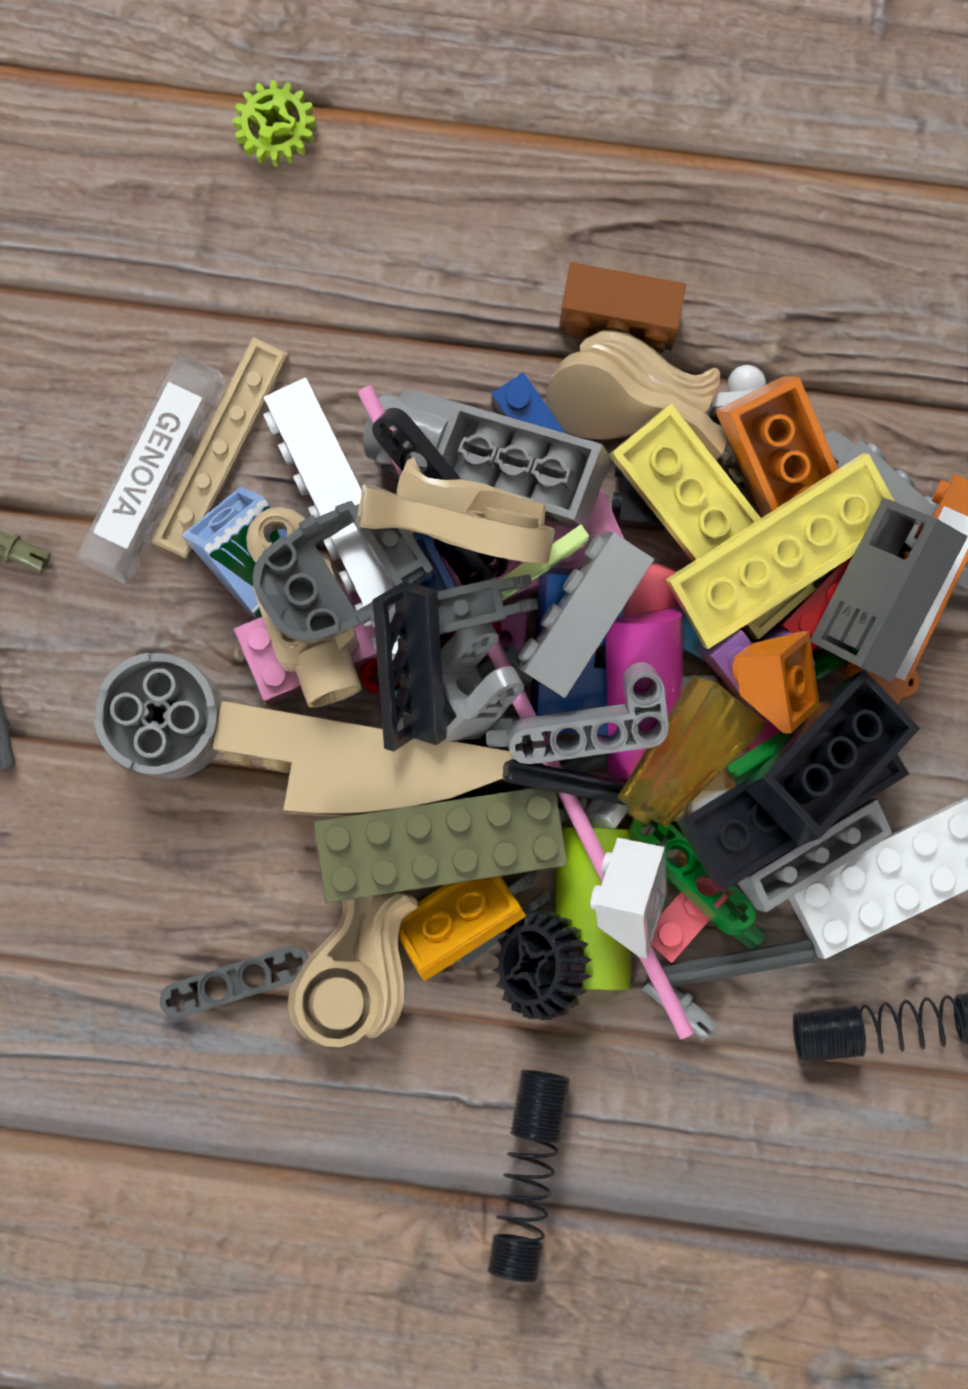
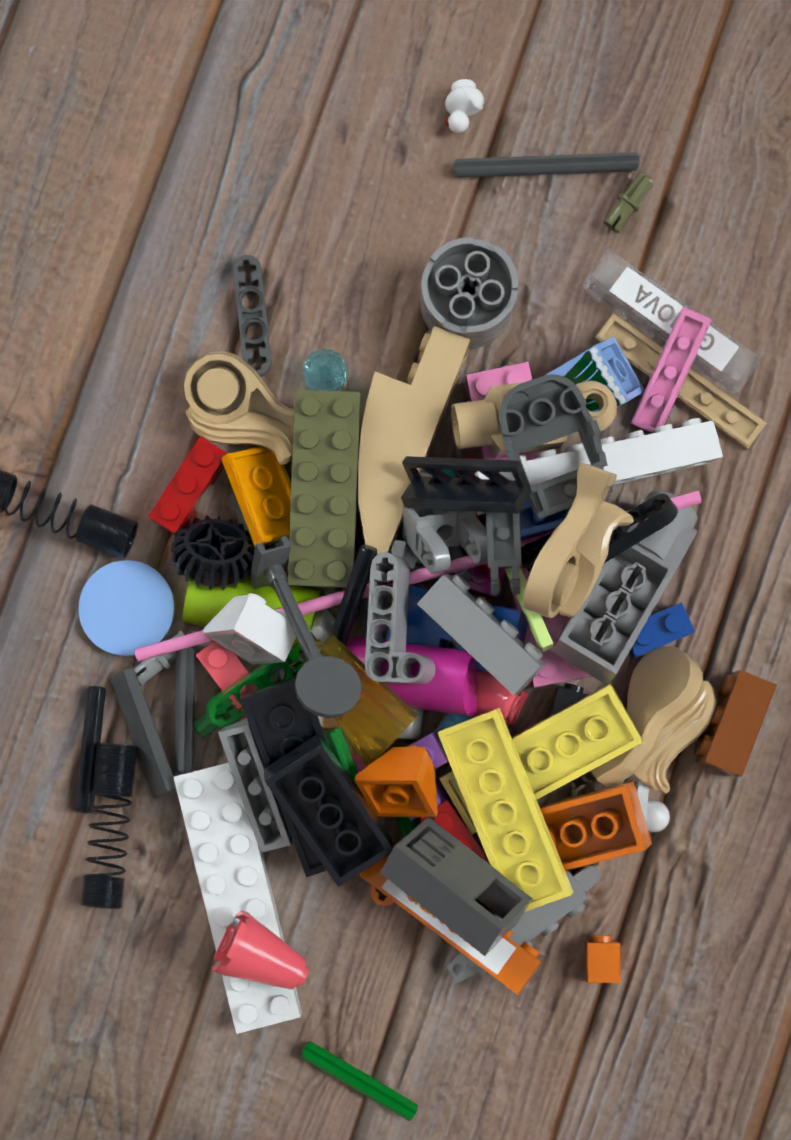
camera: 100 degrees right, 0 degrees up
(211, 457) = (671, 370): none -> bright pink tile
(290, 876) = (325, 371): none -> clear light blue wheel
(465, 1015) = (189, 483): none -> red arch
(627, 1062) = (126, 607): none -> light blue tile
(685, 788) = (323, 684): none -> dark grey piece
(776, 1008) = (143, 732): none -> dark grey tile
(797, 1072) = (91, 736): none -> black axle
(926, 412) = (602, 959): none -> orange brick

